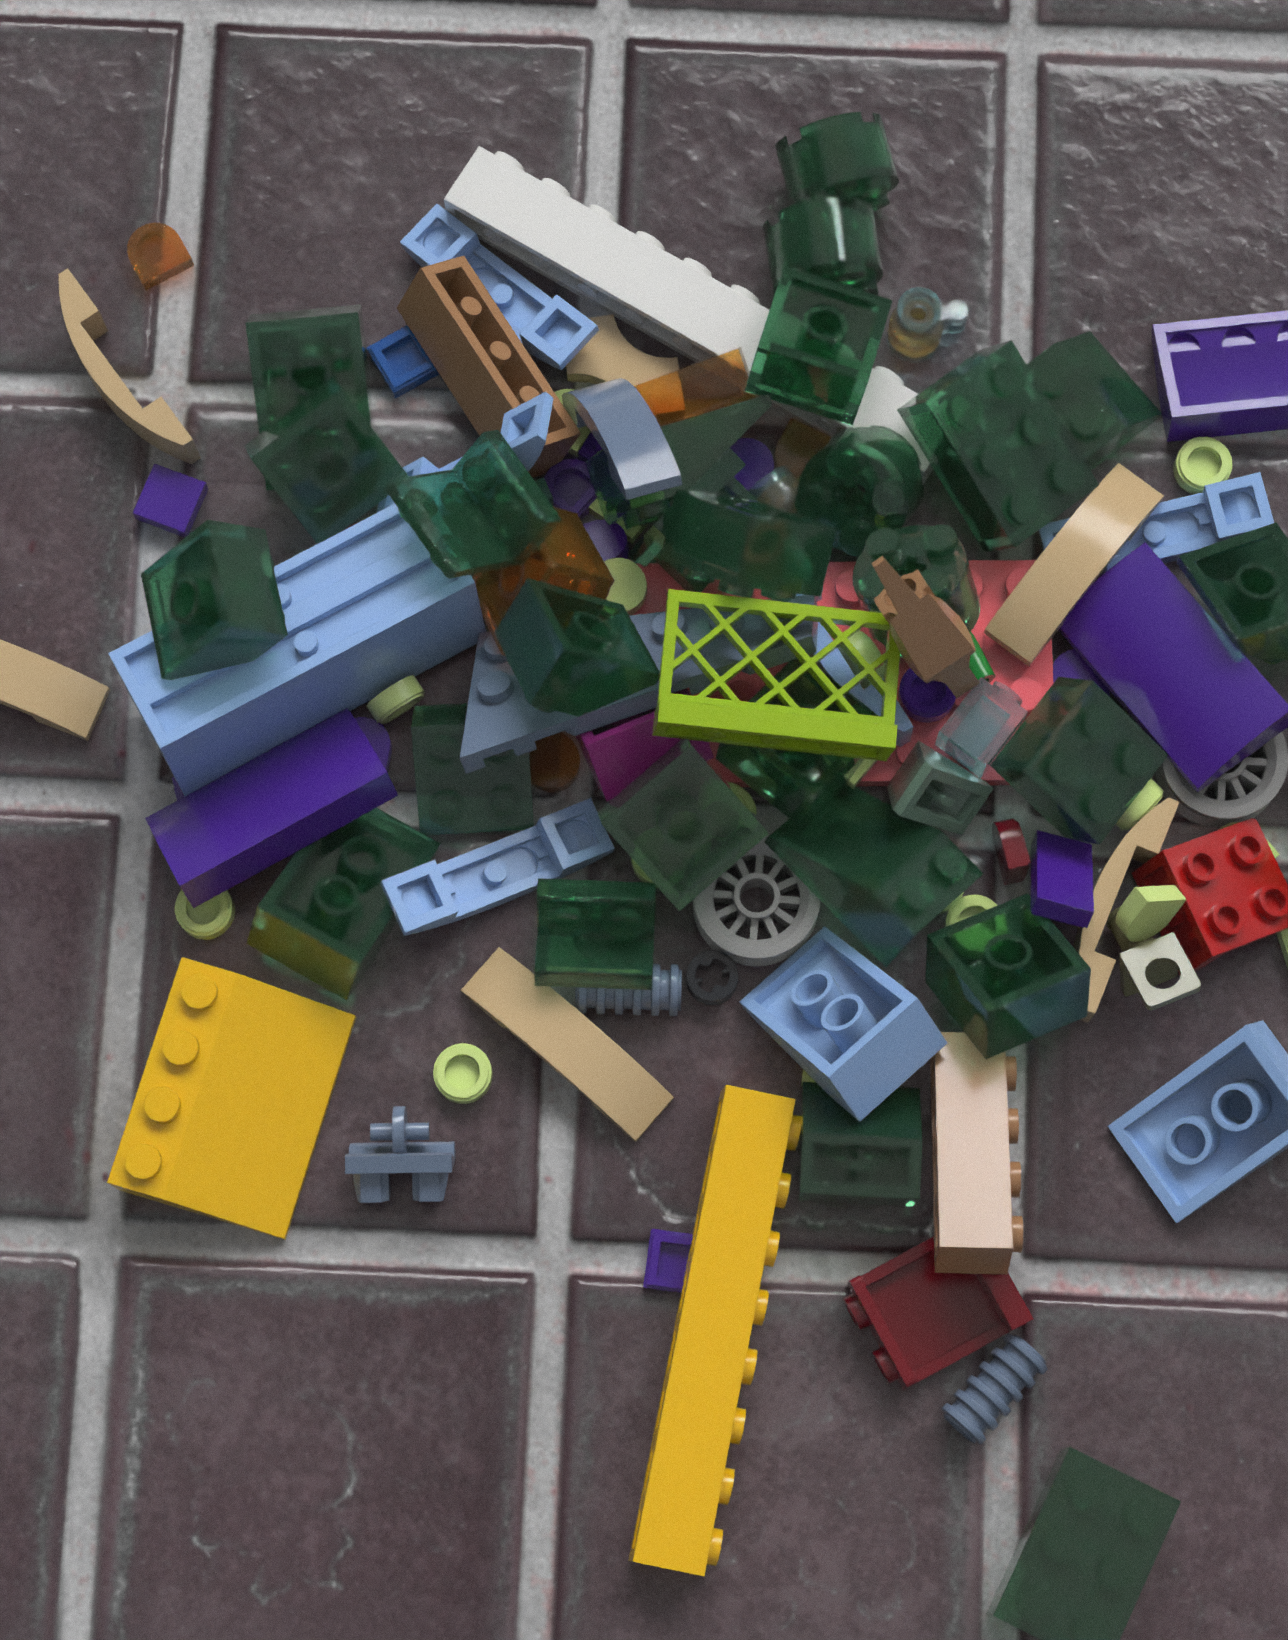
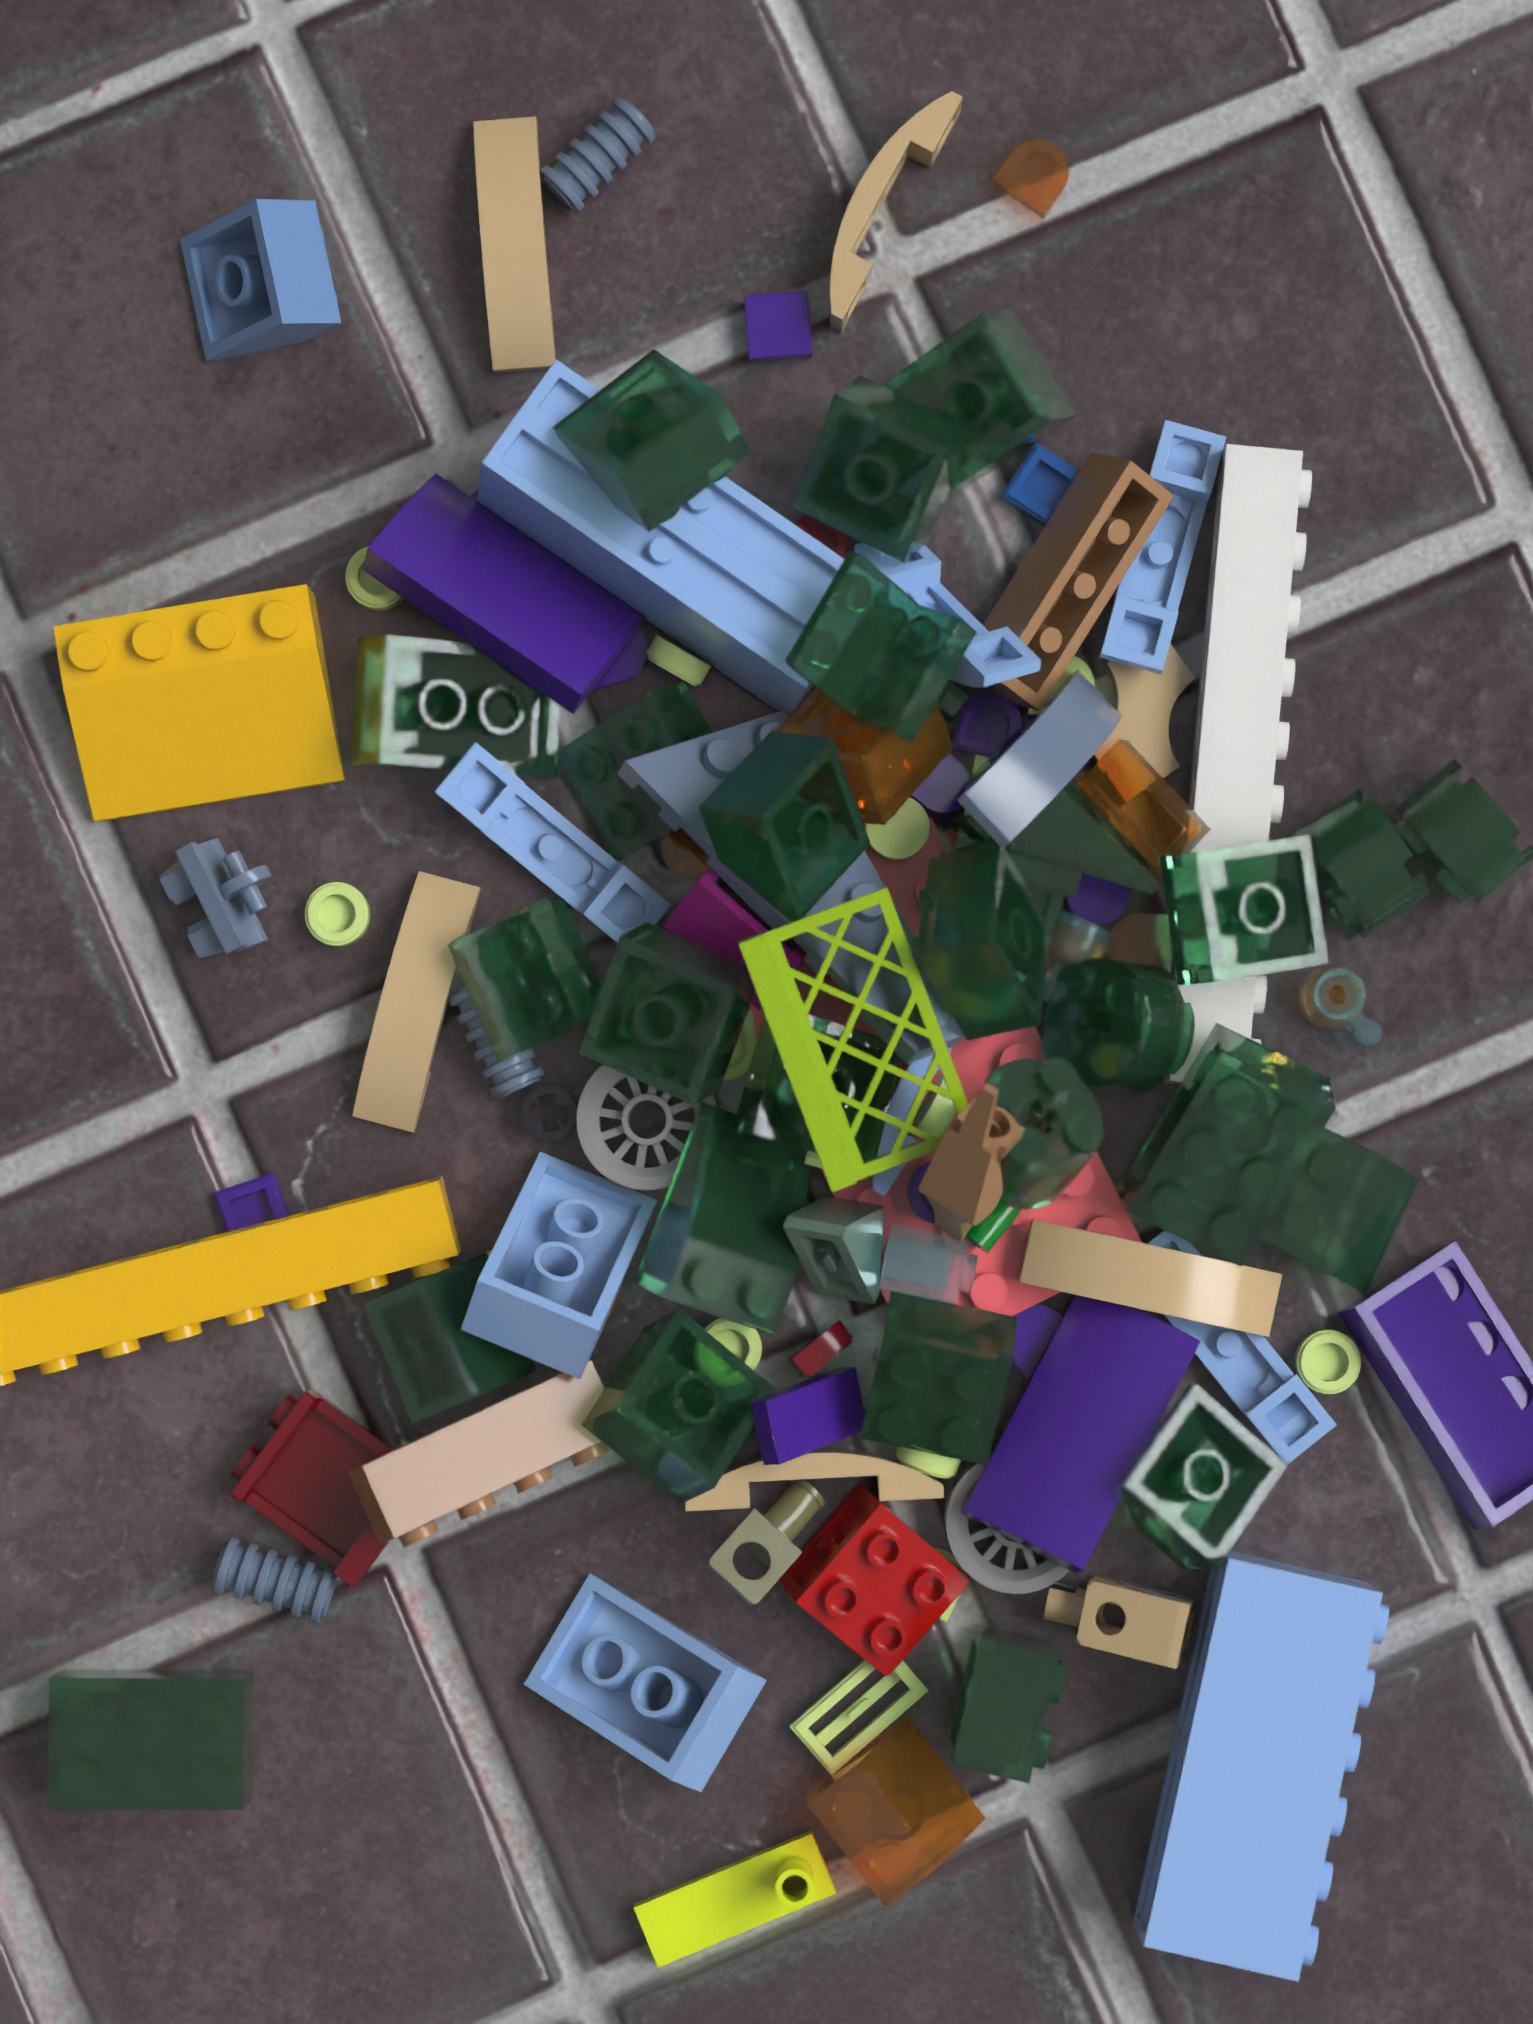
camera: 65 degrees right, 10 degrees up
(1148, 911) = (813, 1518): yellowish green tile -> none

